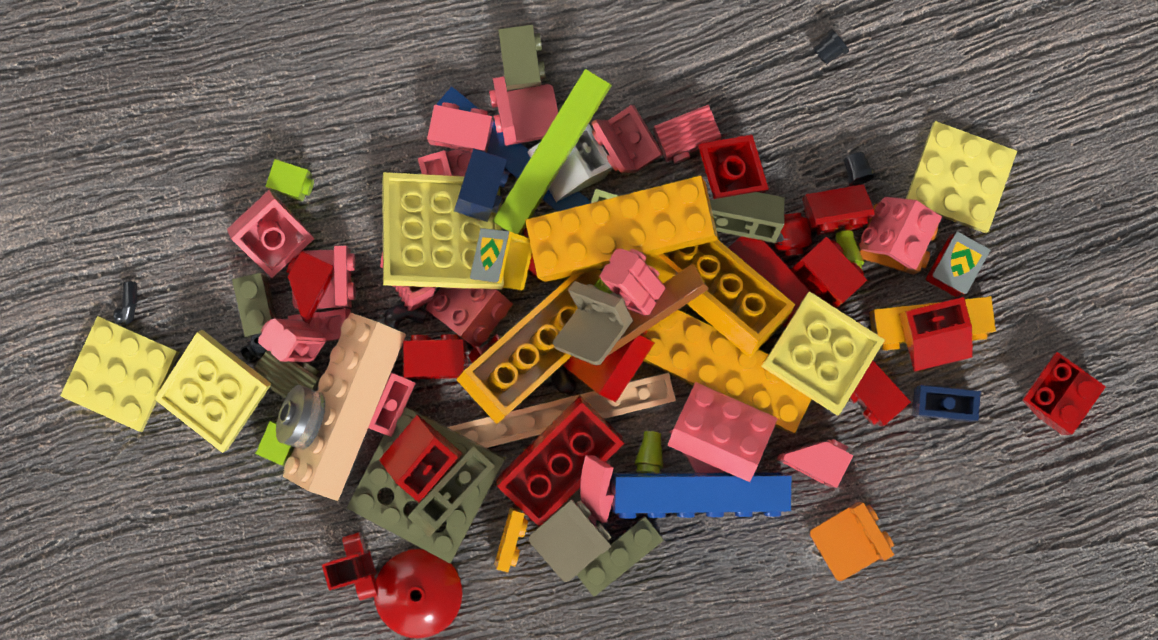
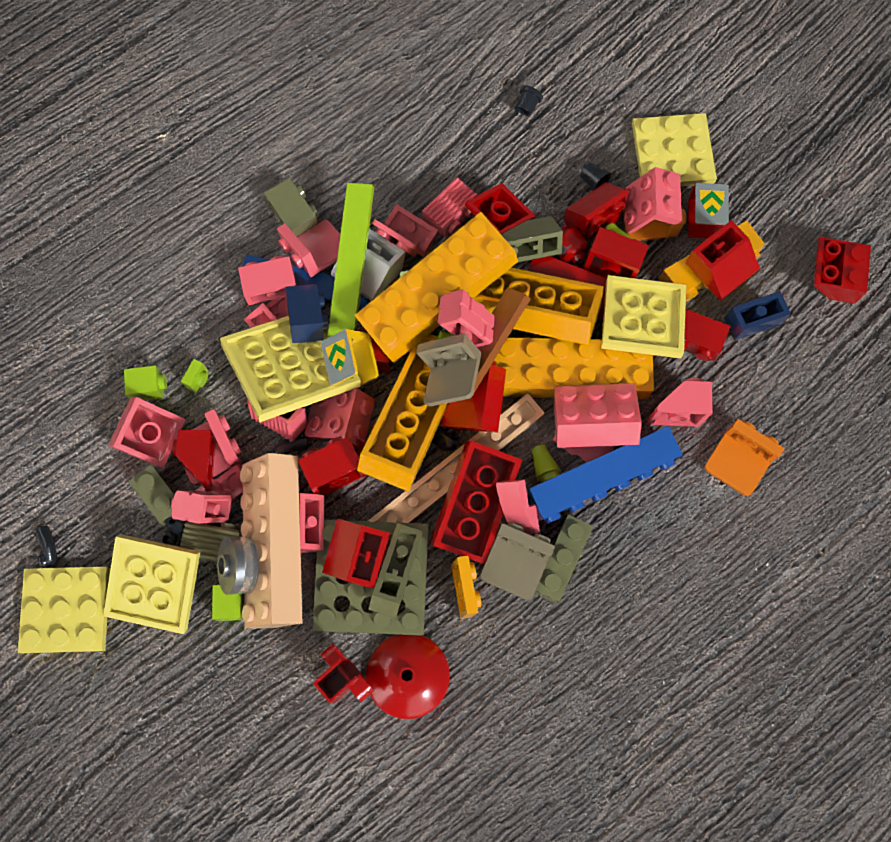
camera: 30 degrees left, 10 degrees down
(343, 197) = (195, 376): none -> lime plate

